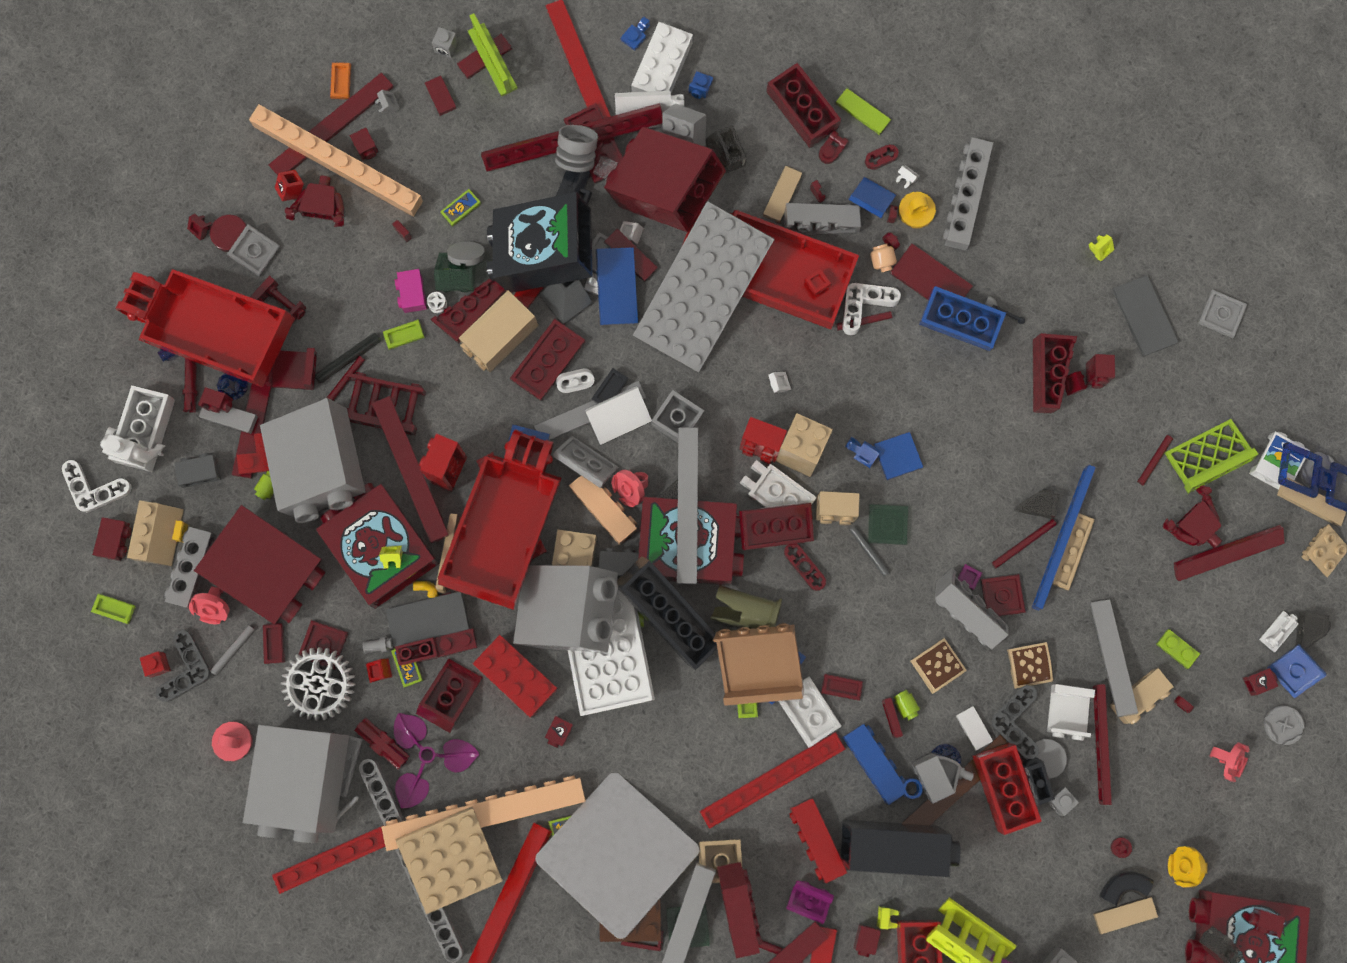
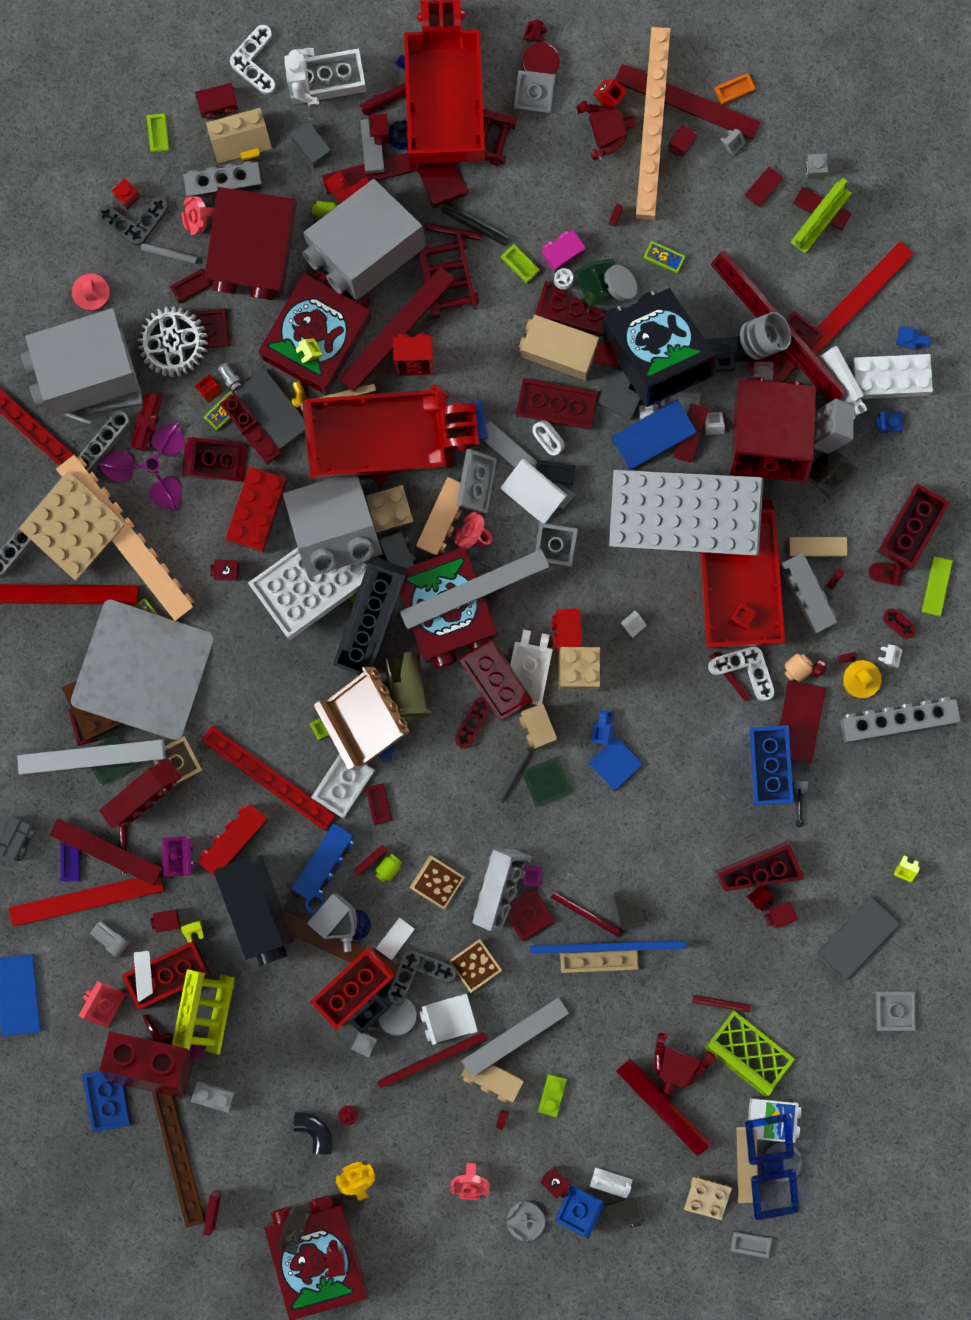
camera: 70 degrees right, 5 degrees up
(872, 197) = (852, 631): blue tile -> none
(1125, 915) = (289, 1143): tan tile -> none

